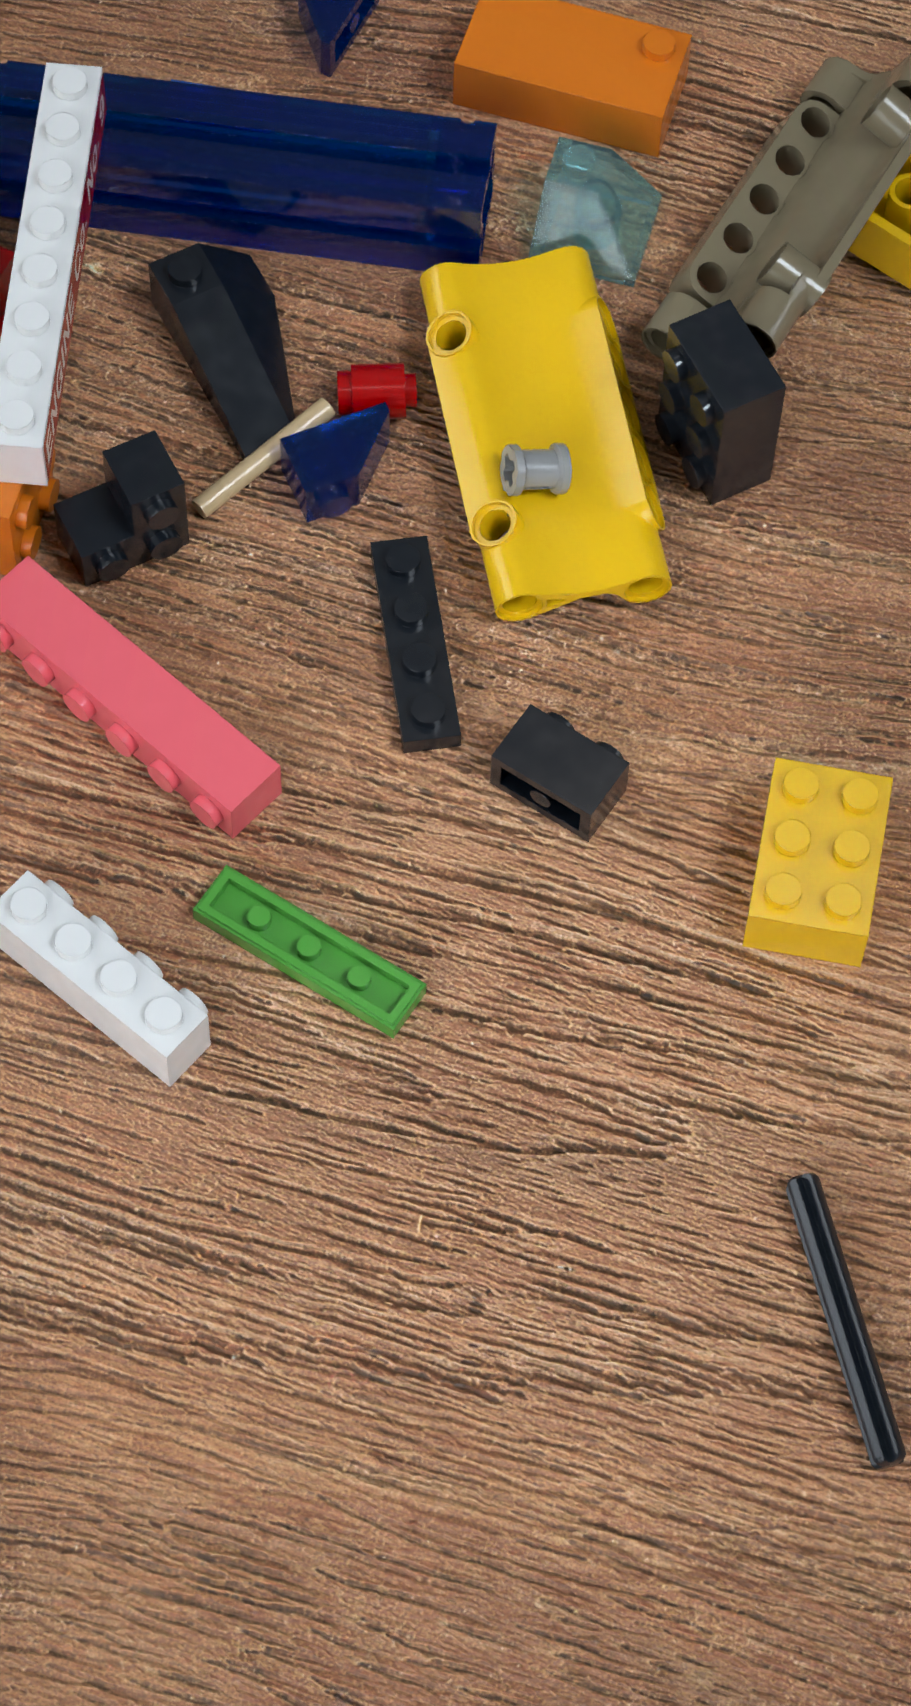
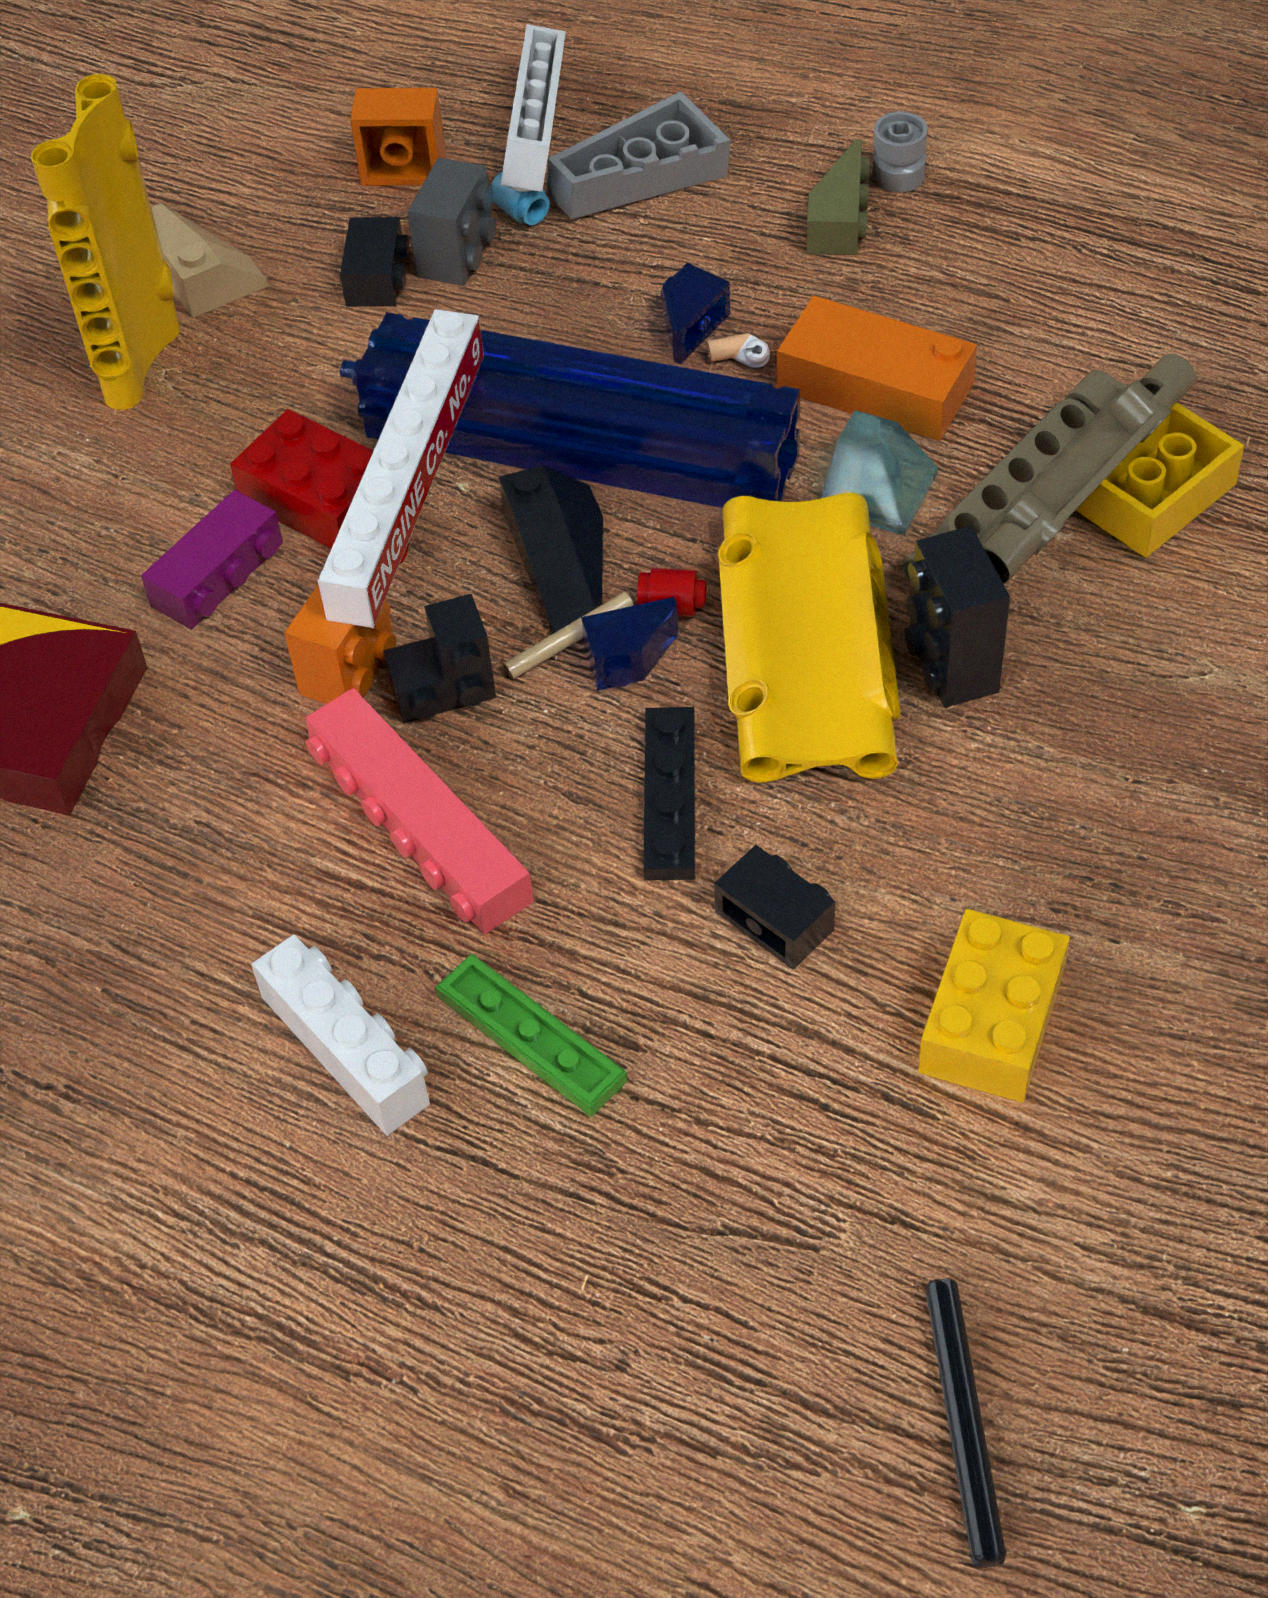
camera: 15 degrees right, 10 degrees down
(402, 51) = (742, 348): none -> arm
(536, 469) = (790, 656): light grey bush -> none

